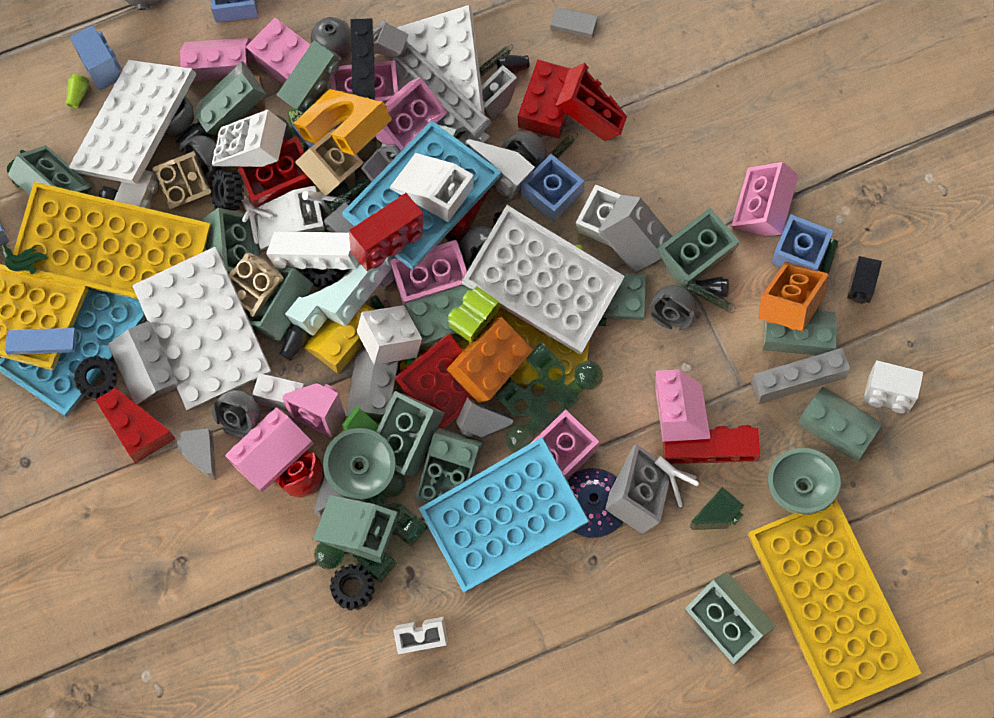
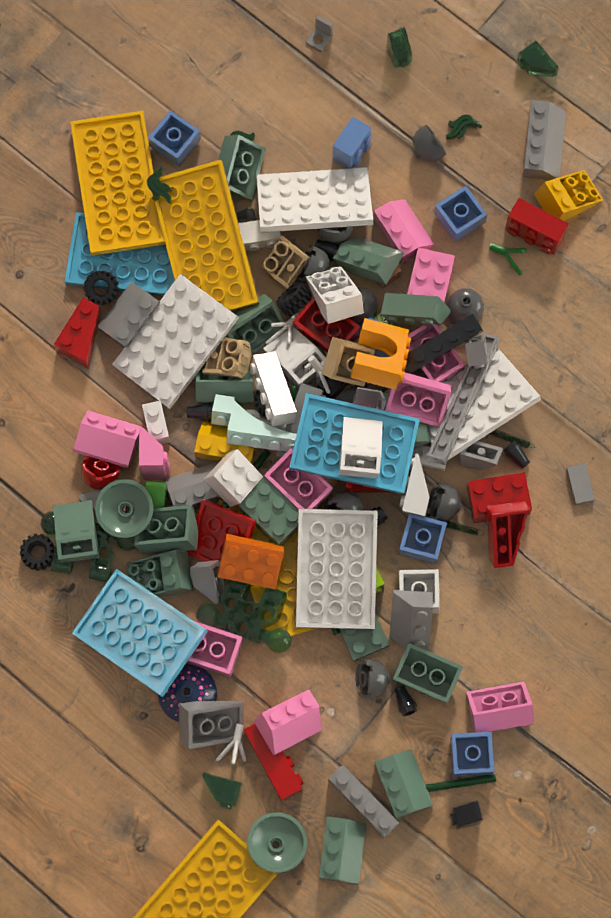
camera: 60 degrees right, 5 degrees up
(41, 341) = (105, 234): medium blue tile -> none
(76, 90) = (321, 144): lime cone -> none
(198, 450) = (84, 390): light grey slope -> none
(236, 412) = (126, 401): dark grey cylinder -> none
(338, 205) = (333, 392): dark green piece -> none
(386, 232) = (299, 434): red brick -> none
(411, 639) = (19, 614): white brick -> none
(473, 314) = (276, 531): lime brick -> none
(706, 298) = (392, 702): dark green piece -> none
(730, 617) = (146, 836): sand green slope -> none
(793, 296) = (421, 765): orange brick -> none
(892, 387) = (387, 876): white brick -> none

